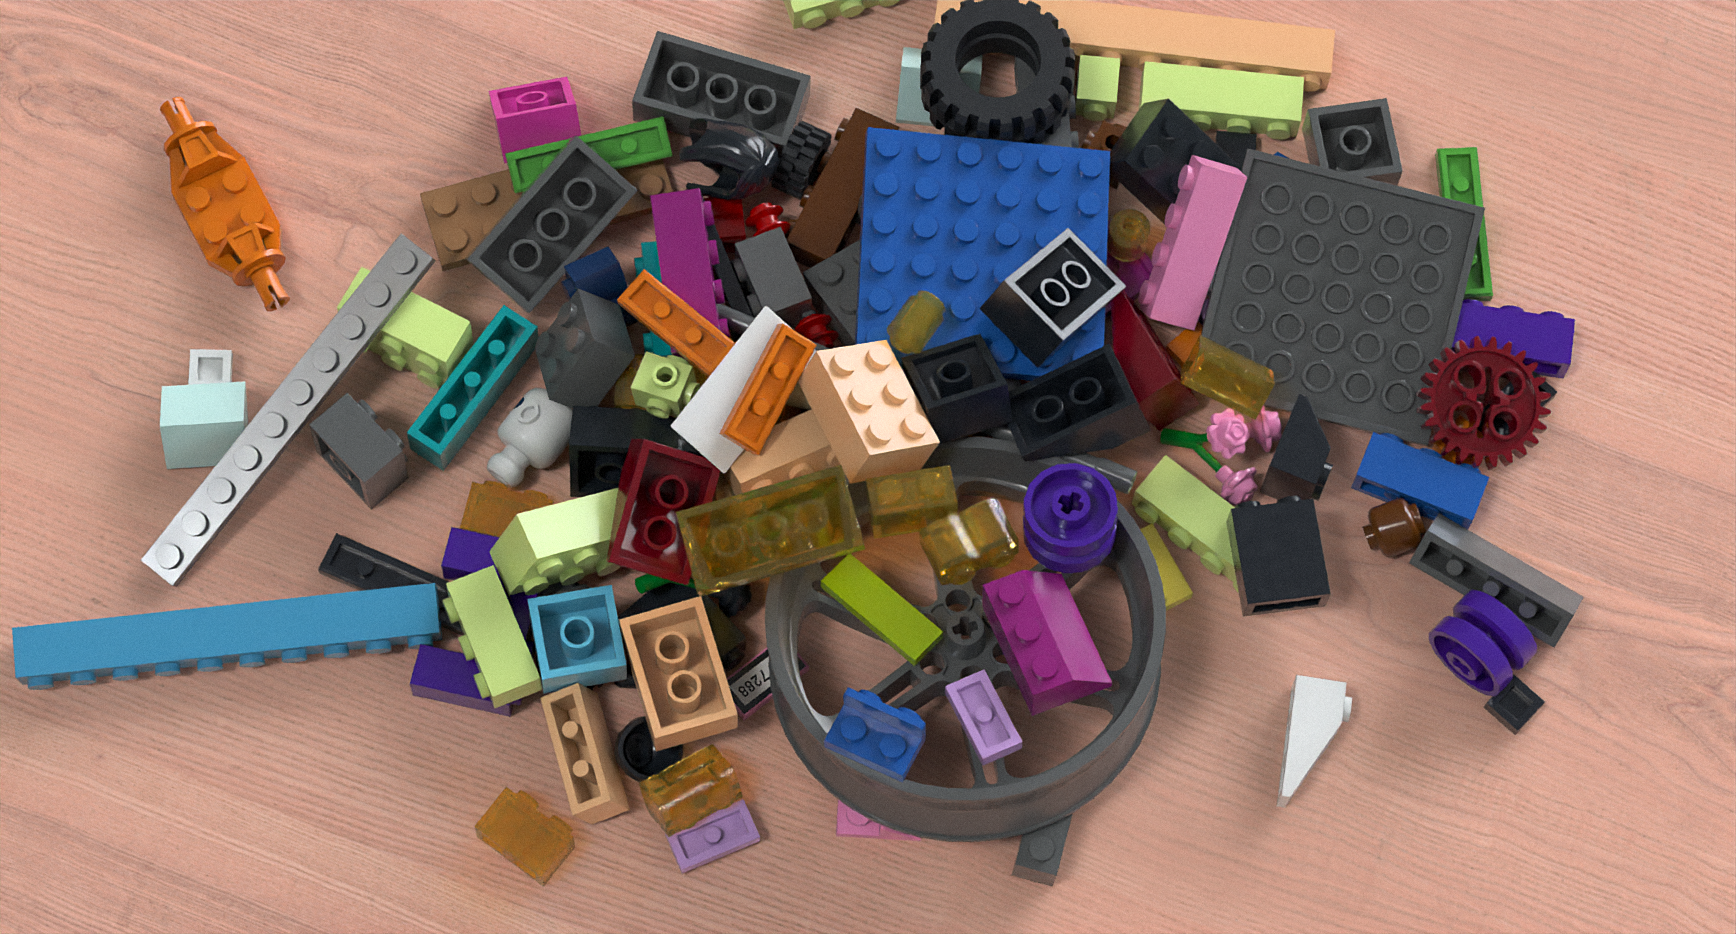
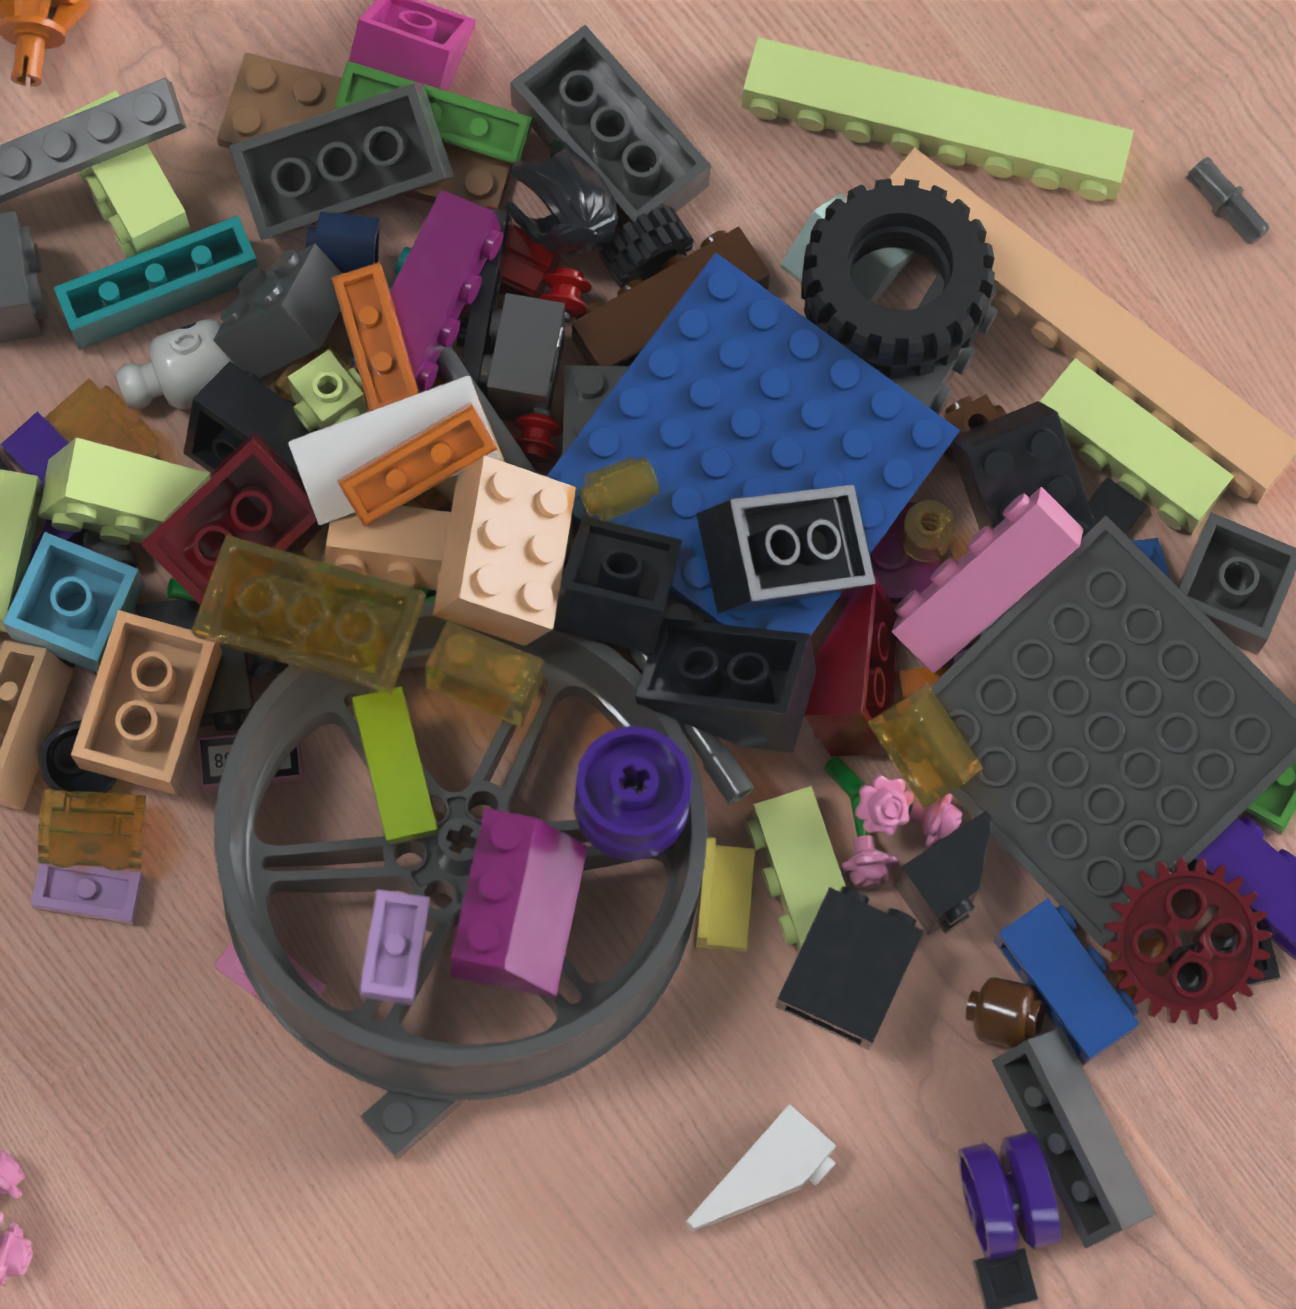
camera: 35 degrees right, 5 degrees up
(877, 734) = (274, 896): blue bracket -> none
(969, 542) = (513, 754): clear yellow brick -> none
(1097, 87) = (1009, 355): yellowish green brick -> none

